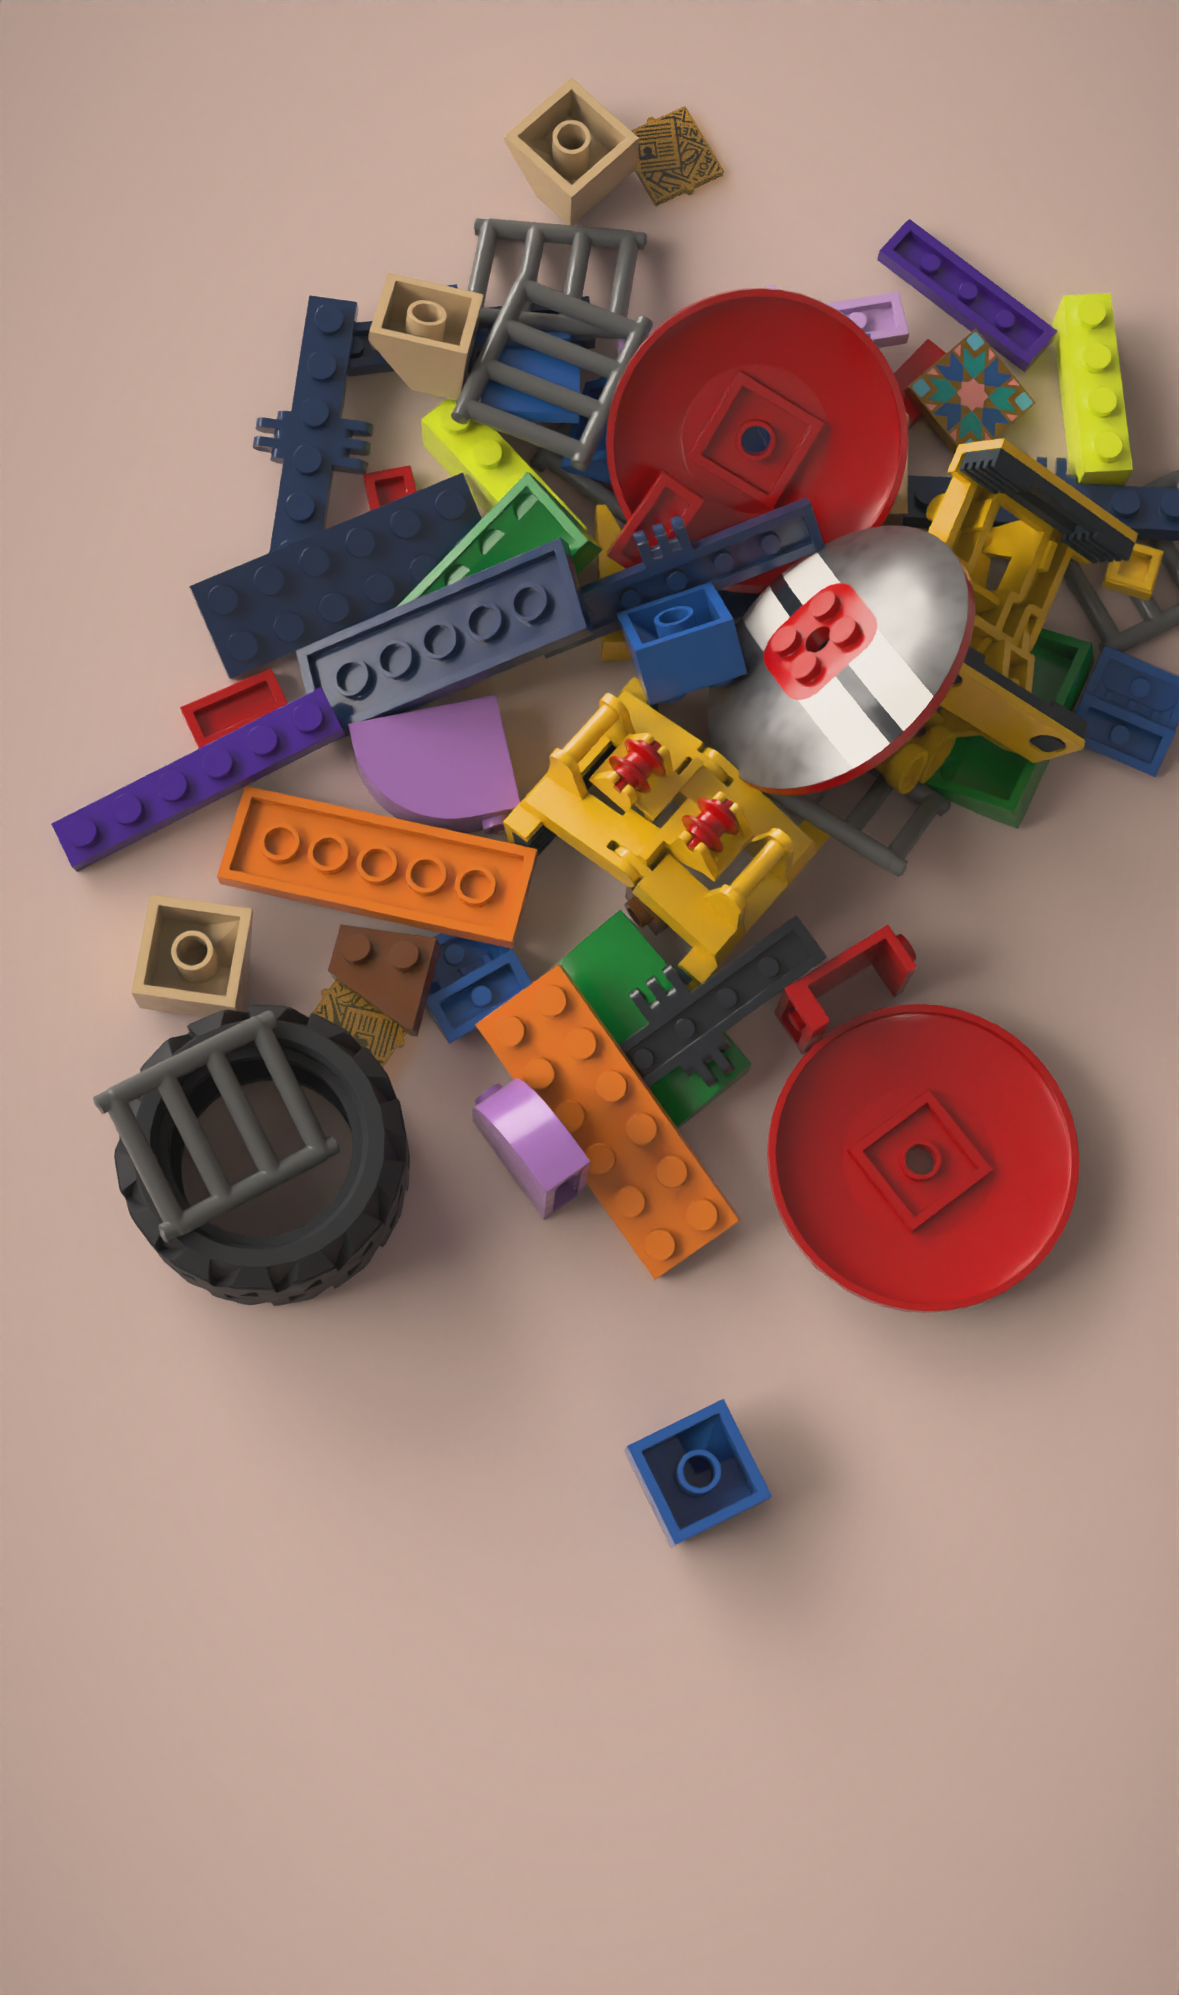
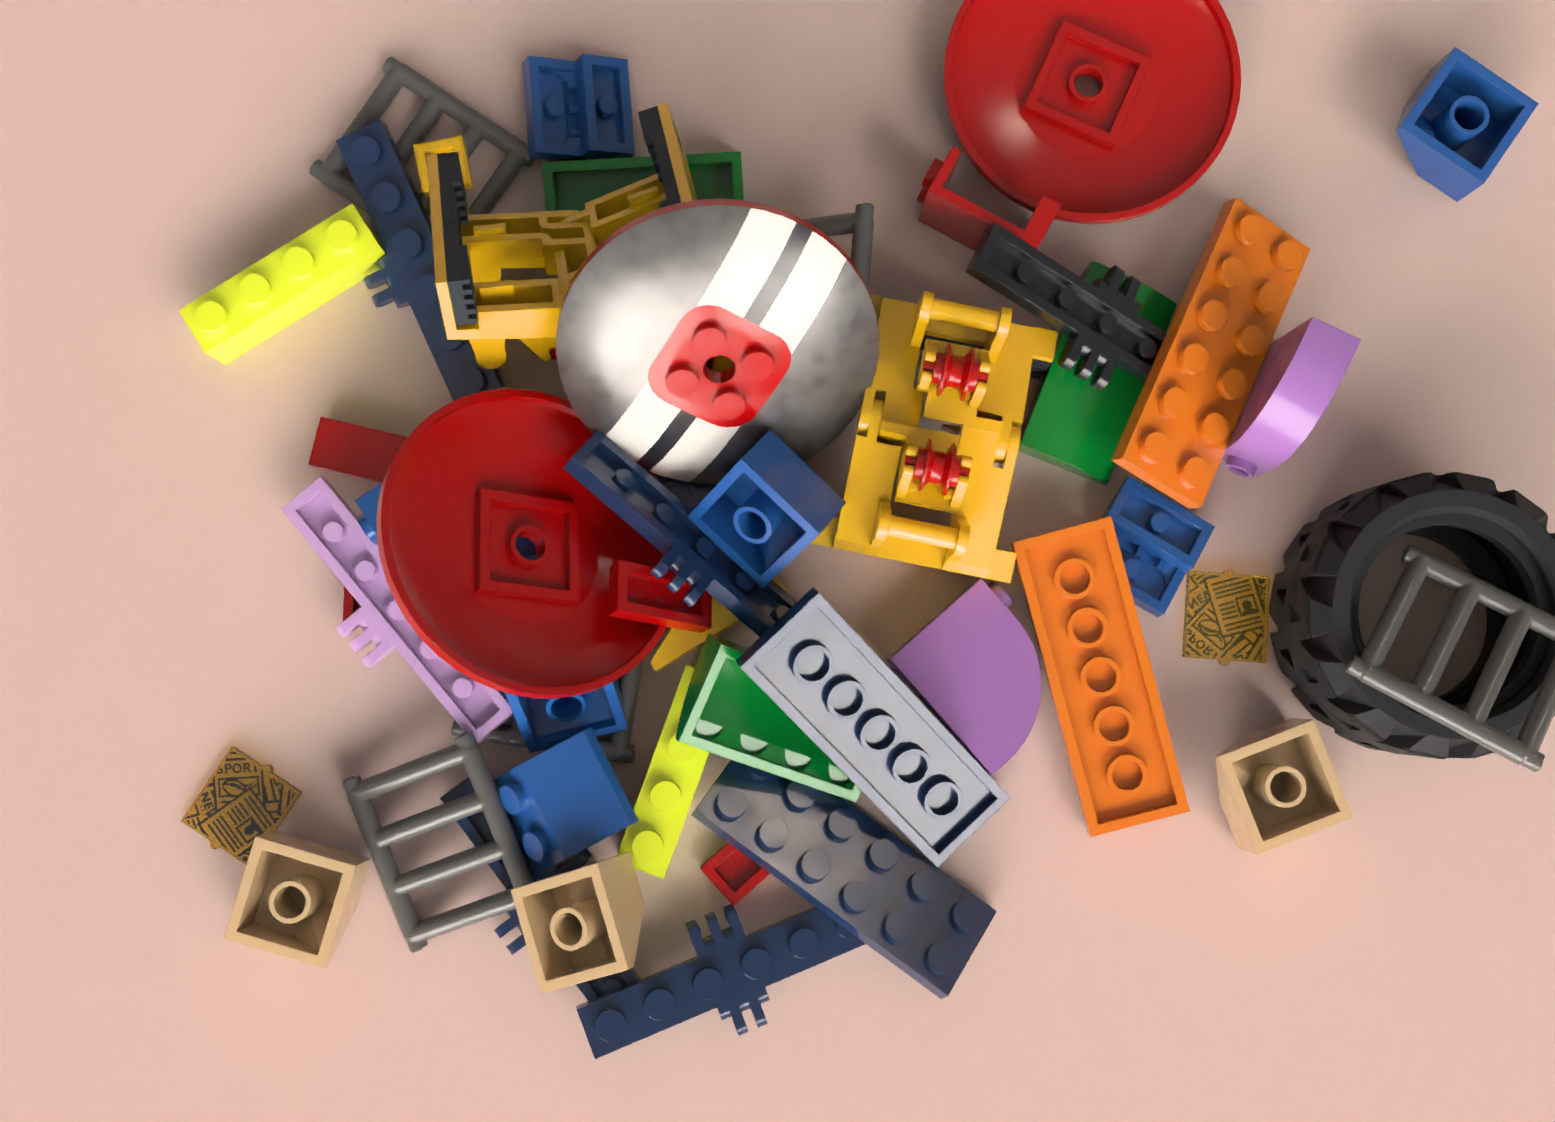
camera: 120 degrees left, 10 degrees up
(198, 779) = (1108, 880): dark purple plate -> none
(233, 707) = (1020, 888): red tile -> none
(387, 971) = (1189, 614): reddish brown wing -> none
(507, 328) = (587, 839): dark grey bar -> none
(966, 295) = (243, 451): dark purple plate -> none
(969, 394) = (348, 395): tile -> none

